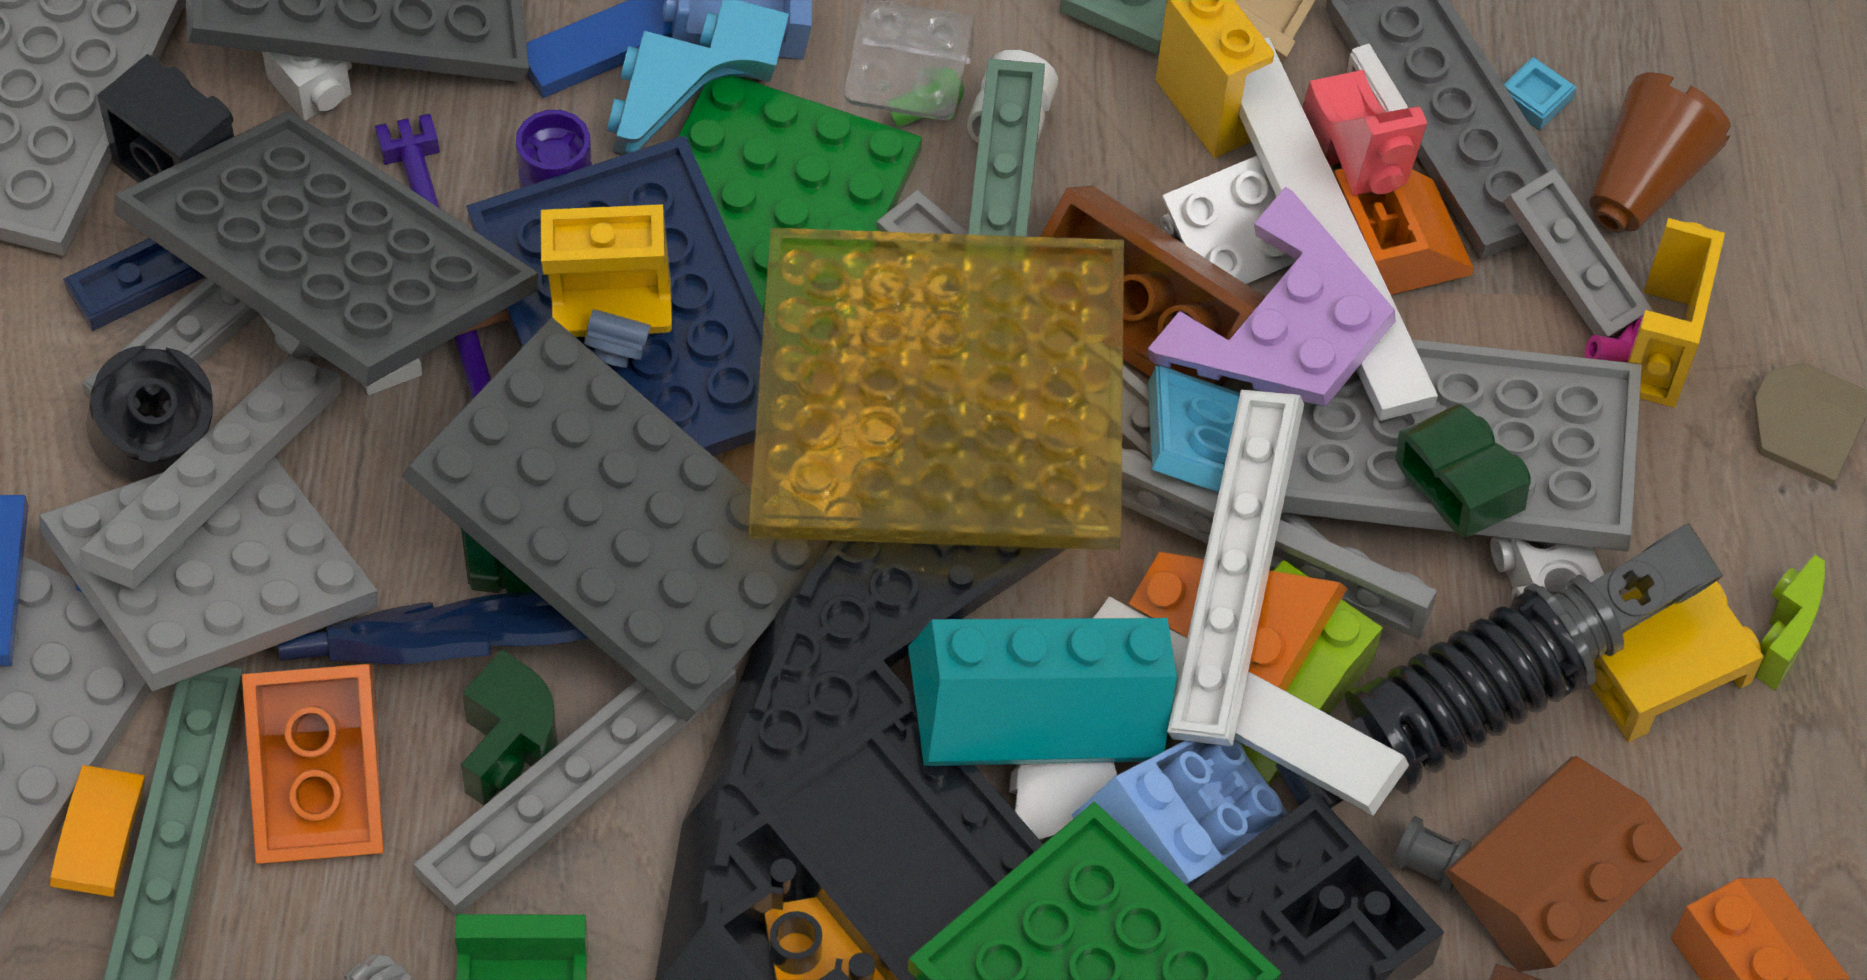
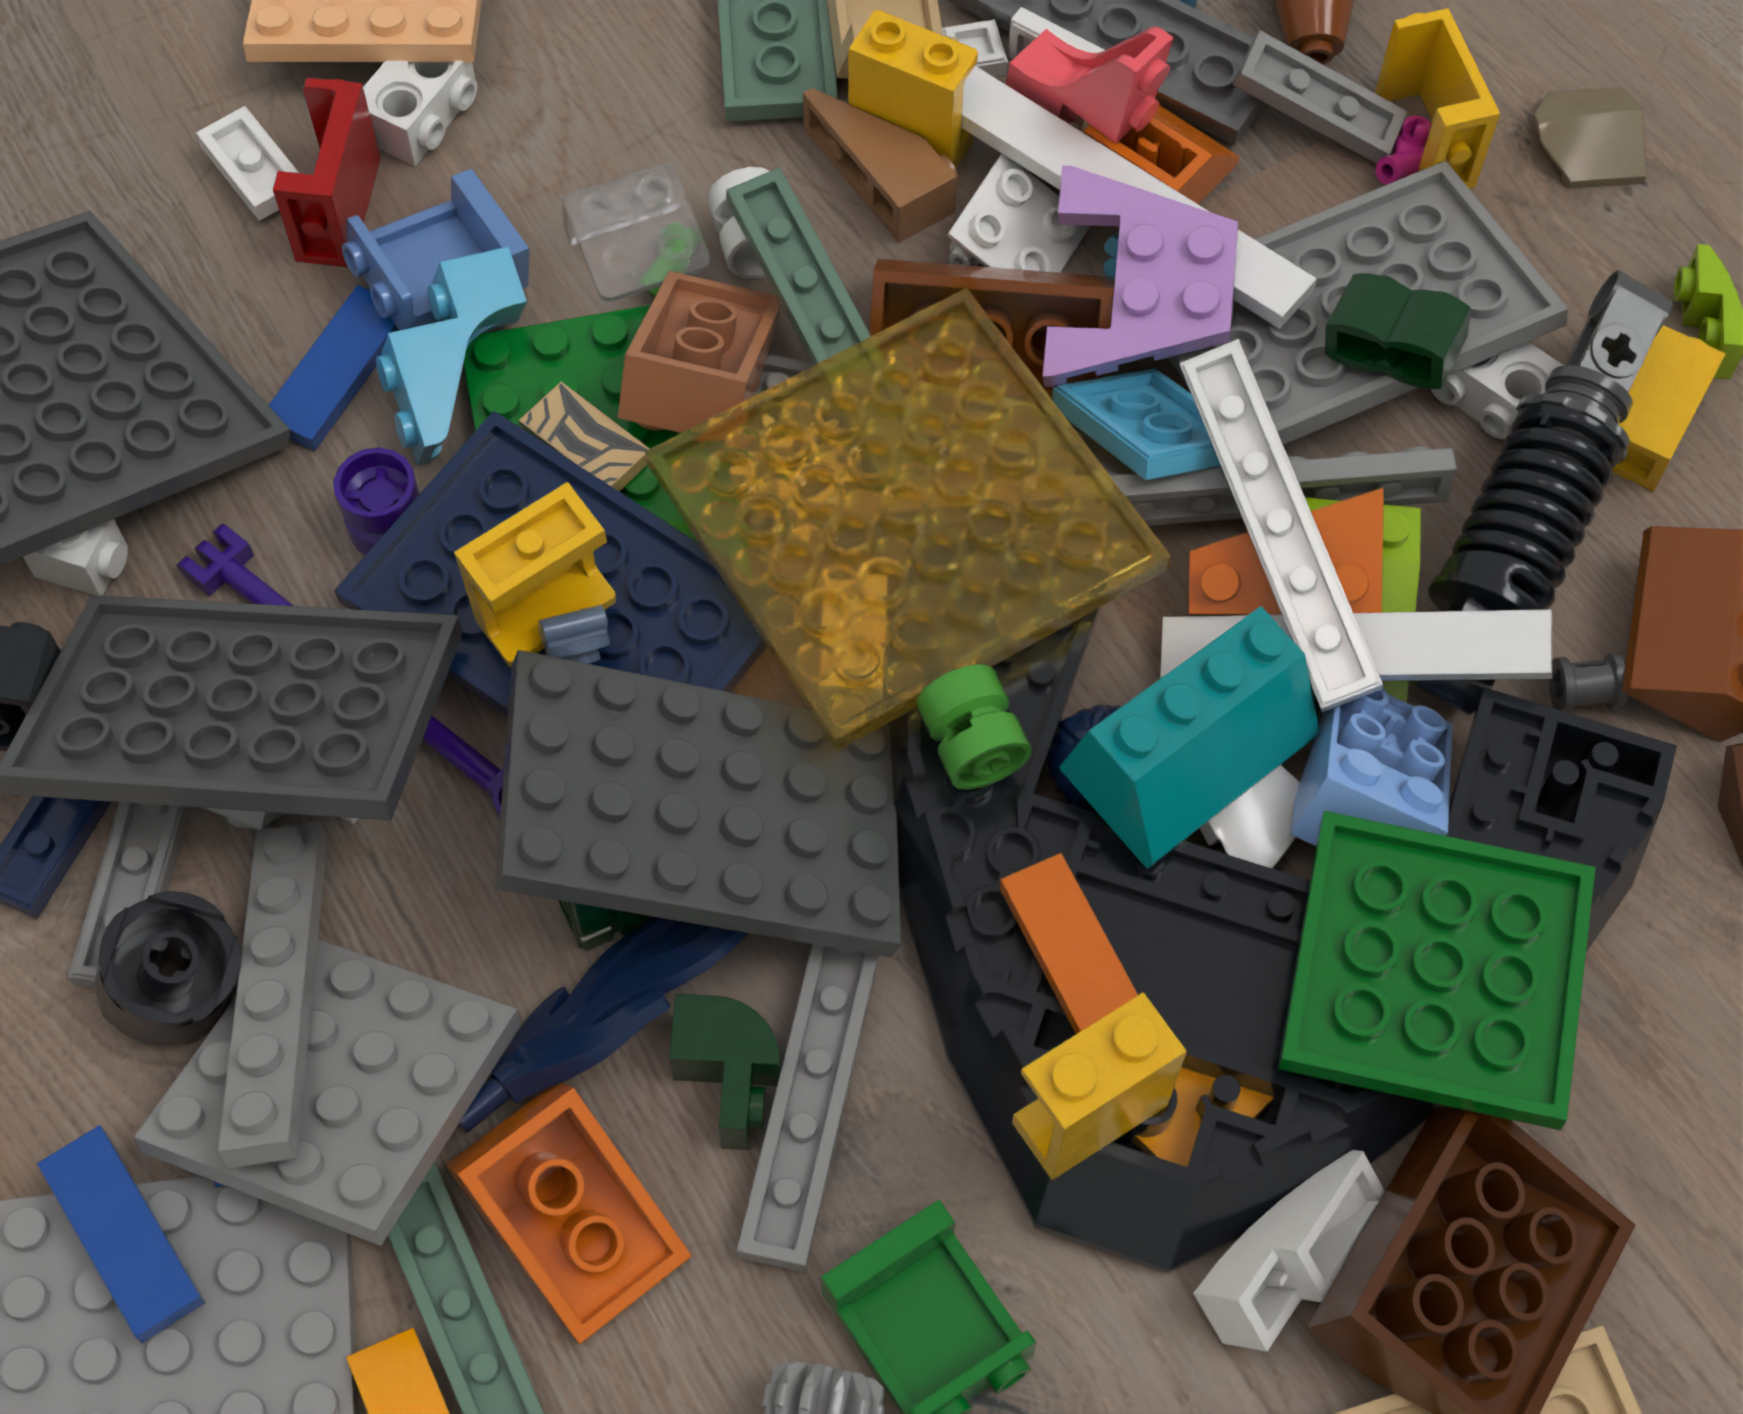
camera: 30 degrees left, 5 degrees up
(739, 884) = (1099, 1085): none -> yellow panel
(744, 196) = (586, 436): none -> tile
(816, 798) = (1067, 941): none -> orange tile
(863, 576) = (971, 722): none -> bright green wheel
(880, 175) = (696, 352): none -> nougat slope
(1162, 117) = (884, 164): none -> medium nougat slope
(1314, 58) = (986, 39): none -> white tile

